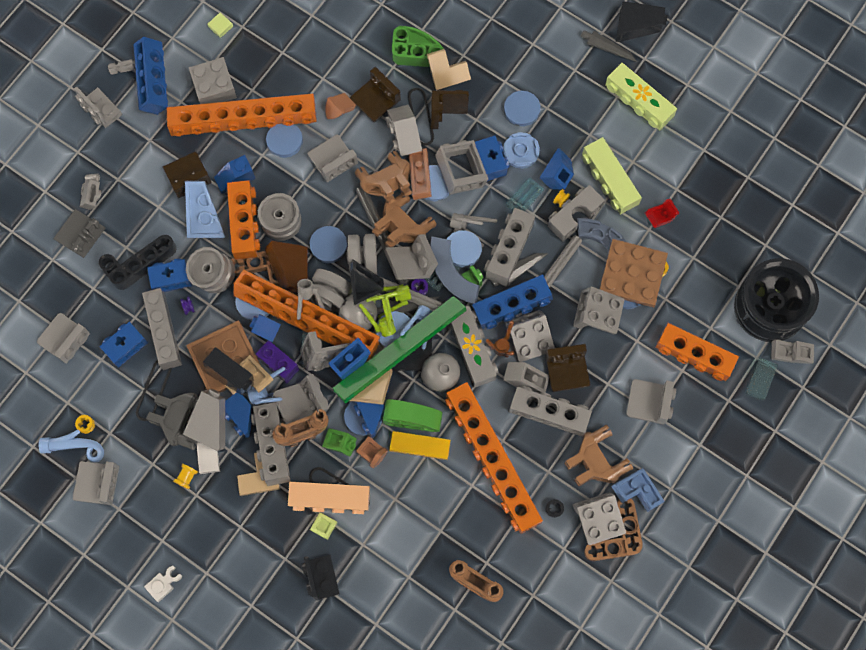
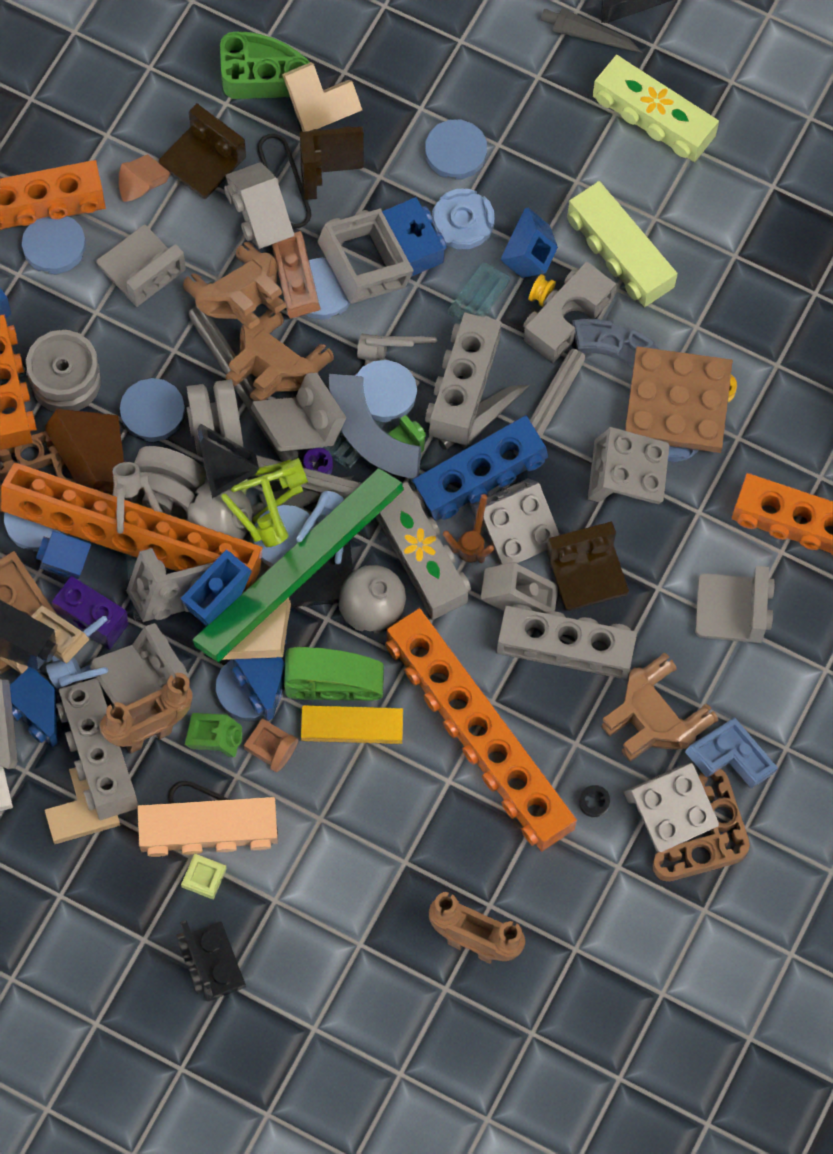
camera: 10 degrees left, 5 degrees down
(662, 214) = (716, 297): red bracket -> none

